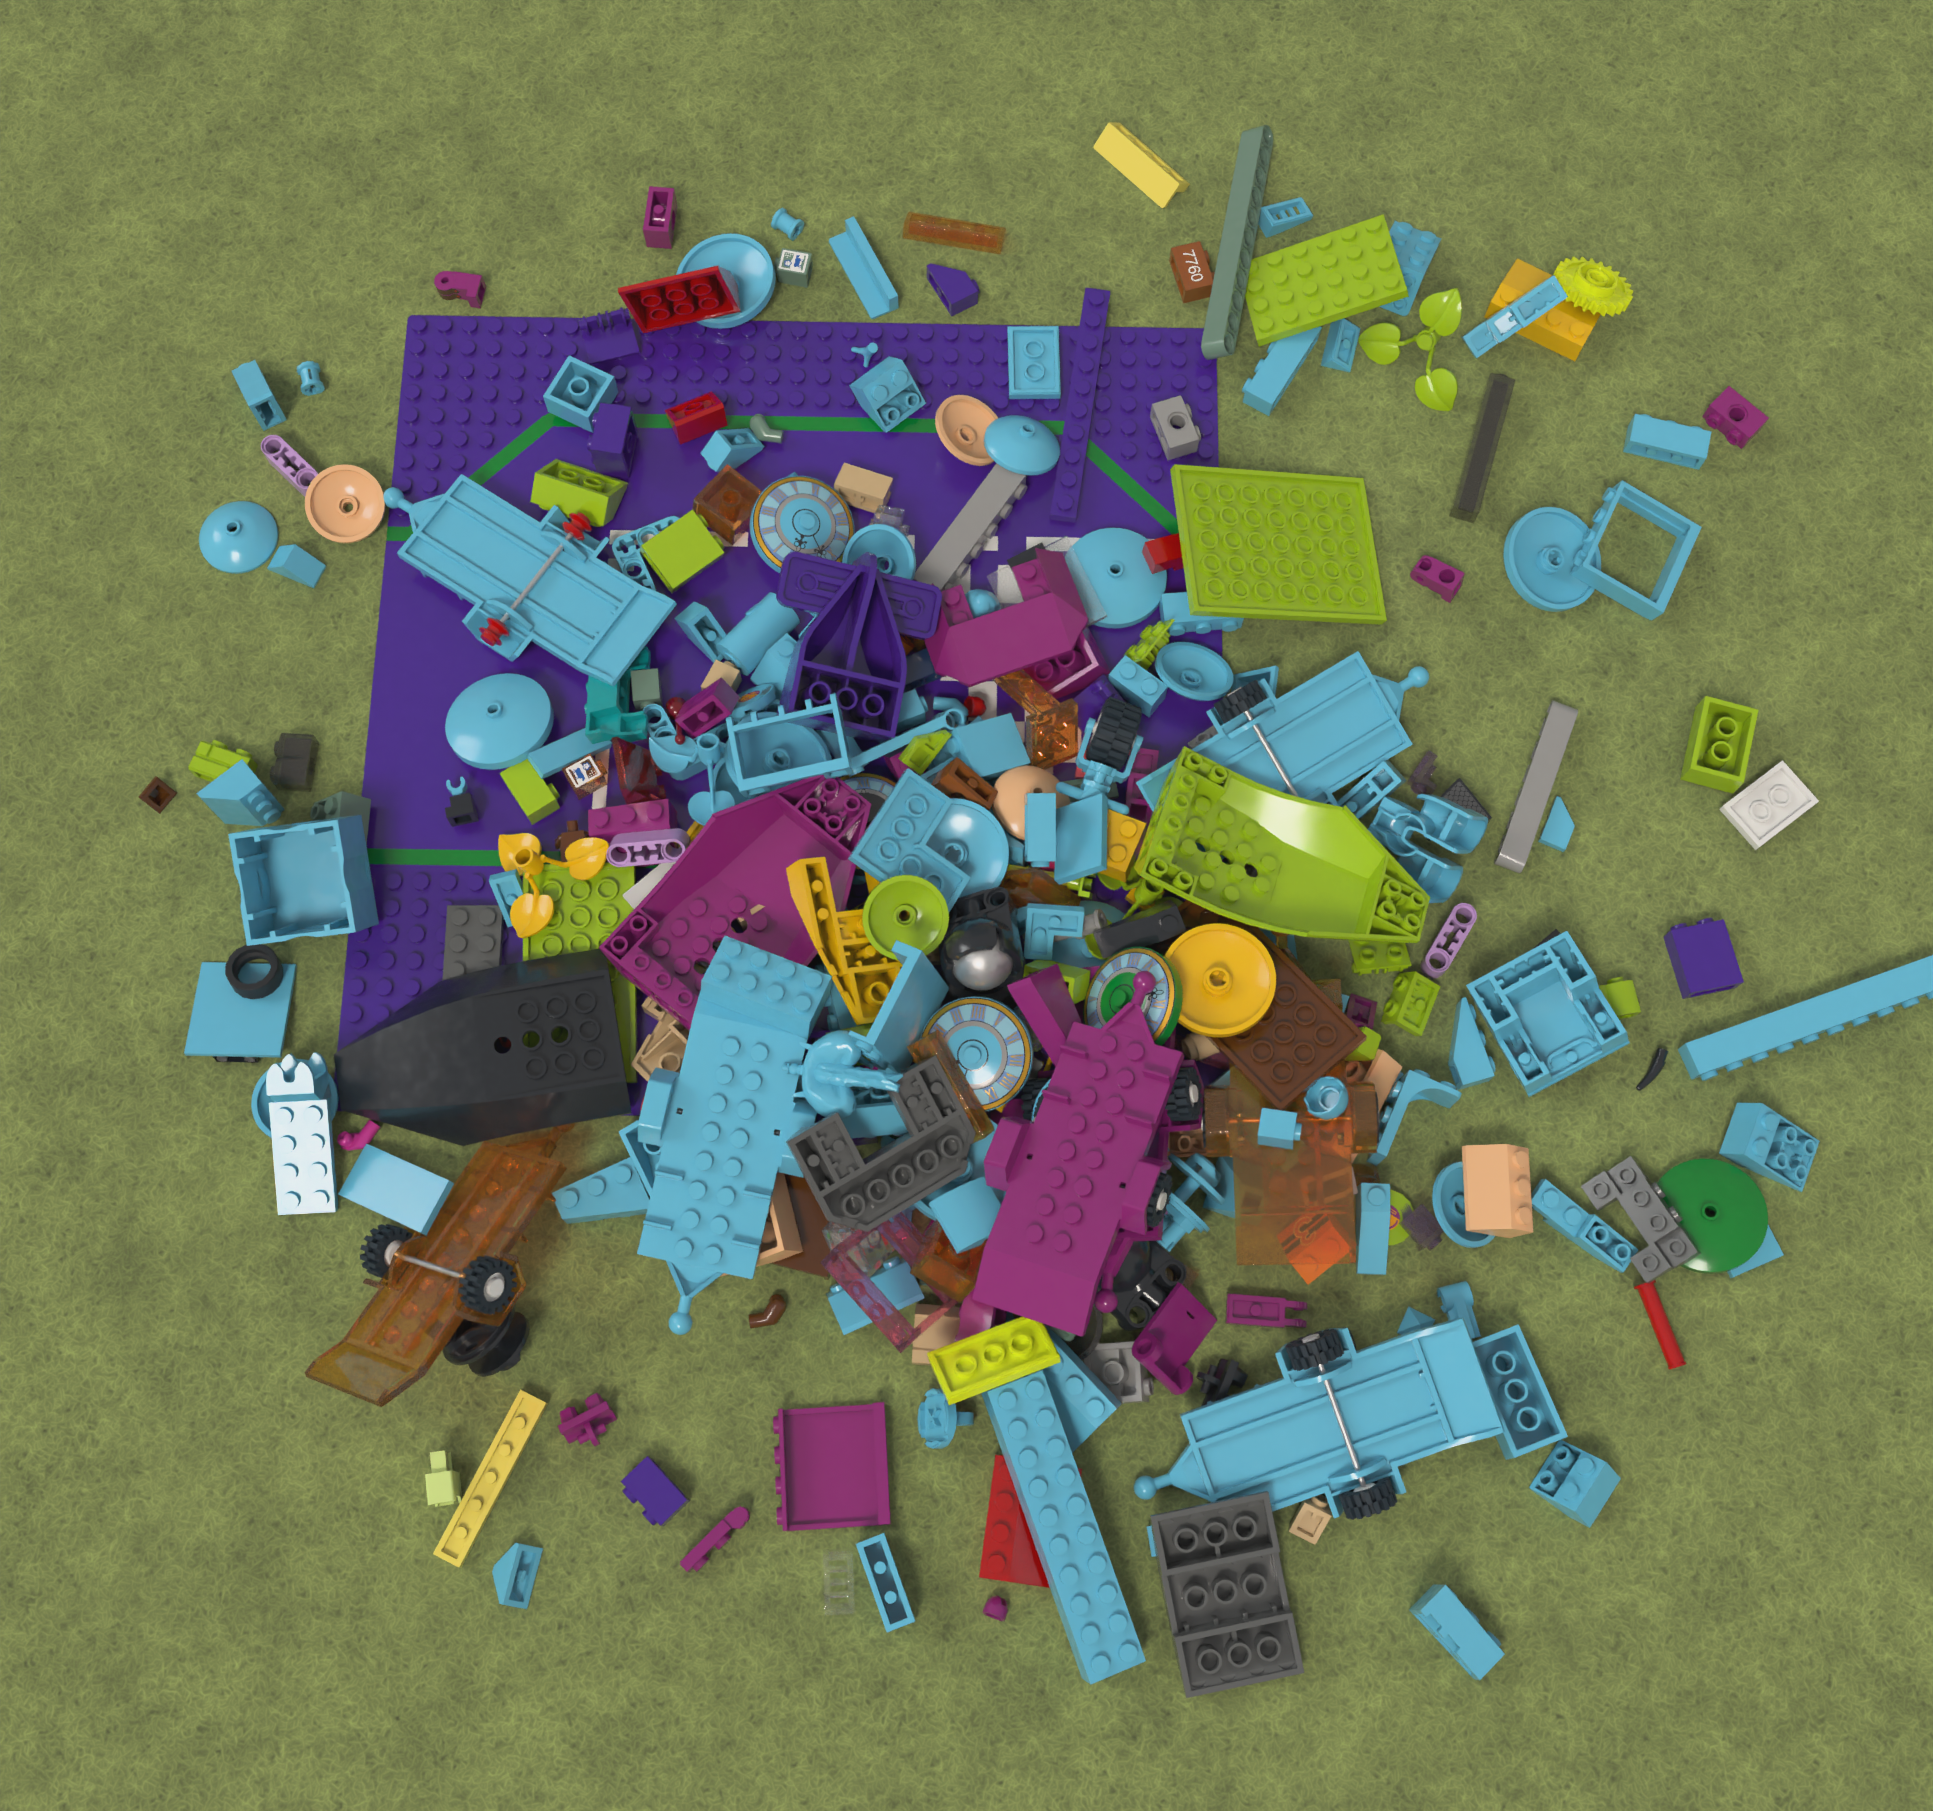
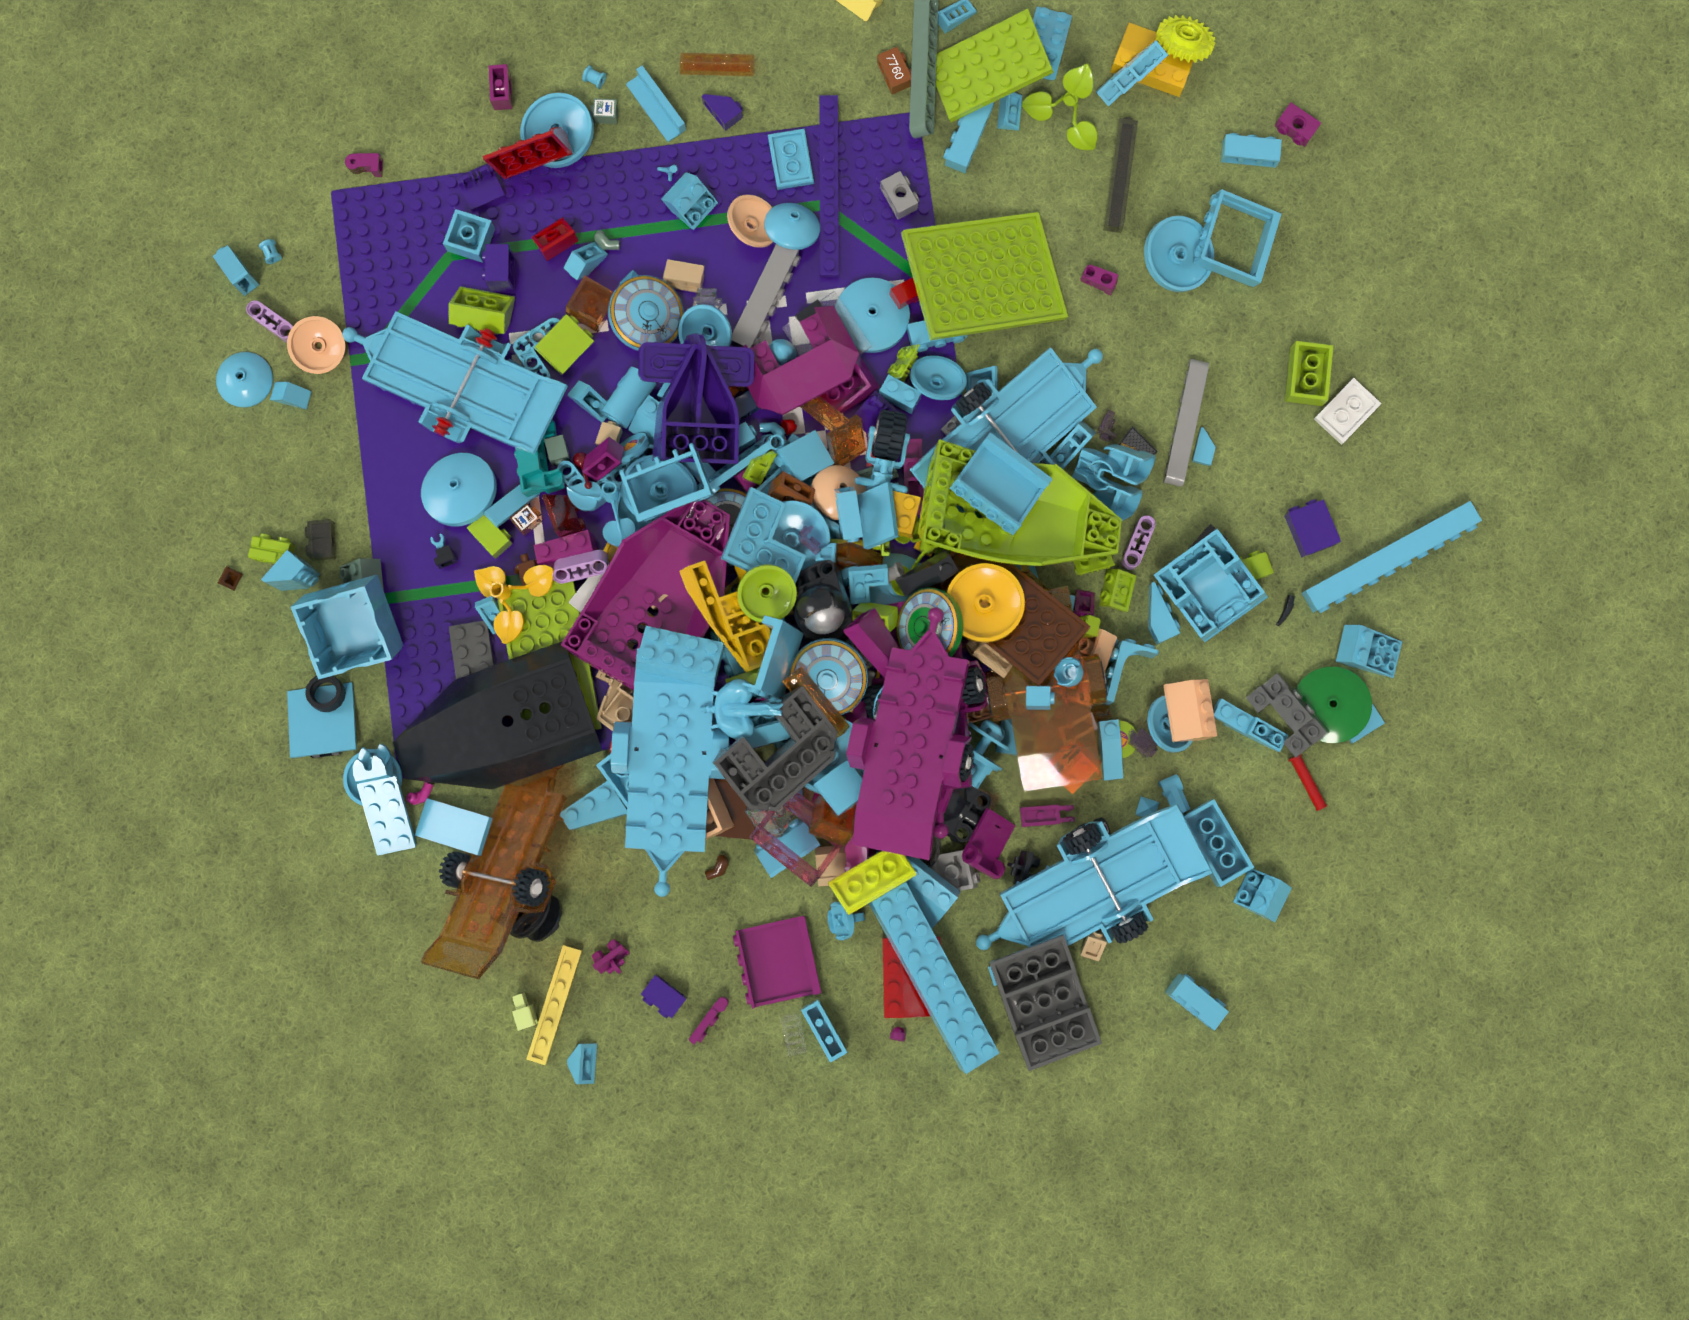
camera: 10 degrees left, 10 degrees up
(980, 861) = (811, 543): none -> clear purple bracket
(1001, 878) = (827, 553): none -> medium azure tile
(1217, 1064) = (992, 659): none -> tan plate
(1263, 818) = (1000, 483): none -> medium azure panel

